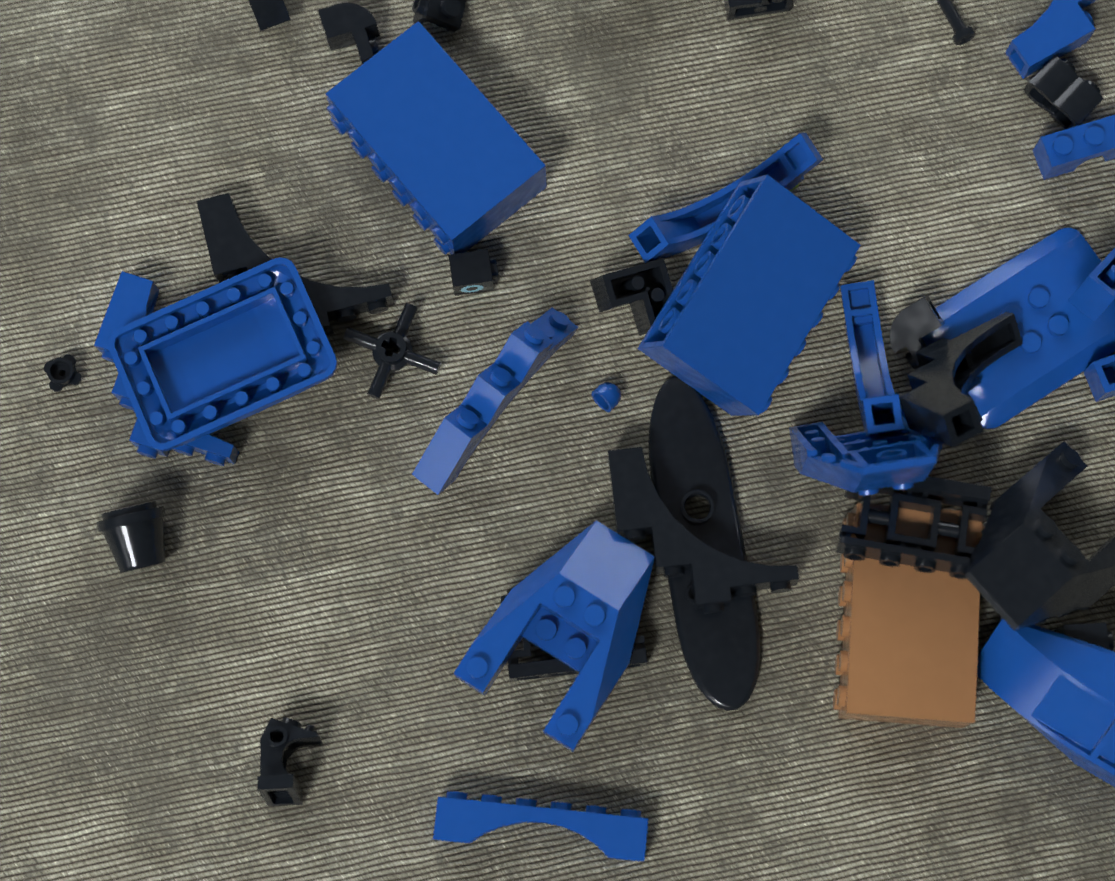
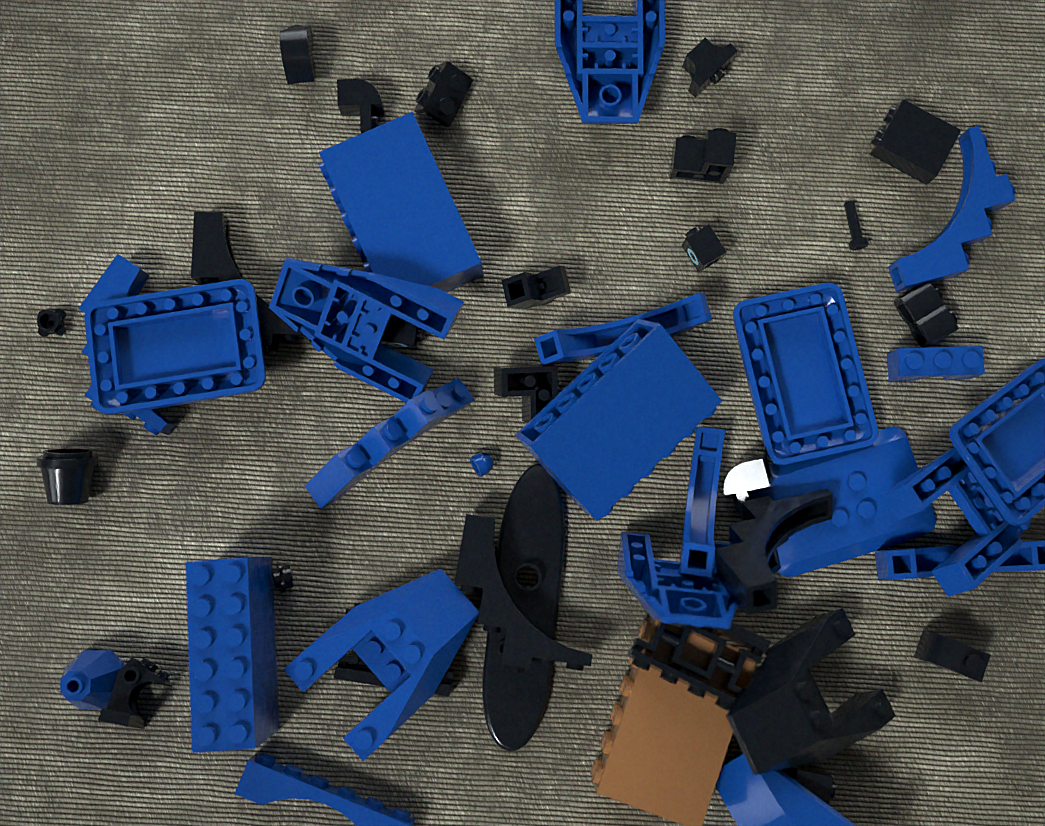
camera: 10 degrees right, 5 degrees up
(241, 766) = (90, 679): none -> blue cone
(387, 668) = (231, 653): none -> blue brick
(388, 340) = (312, 387): black bar -> none
(411, 261) = (349, 314): none -> blue wedge
(416, 585) = (282, 577): none -> black plate
(612, 184) = (535, 290): none -> black brick
(789, 86) = (703, 247): none -> black brick
(945, 194) = (804, 374): none -> blue wedge

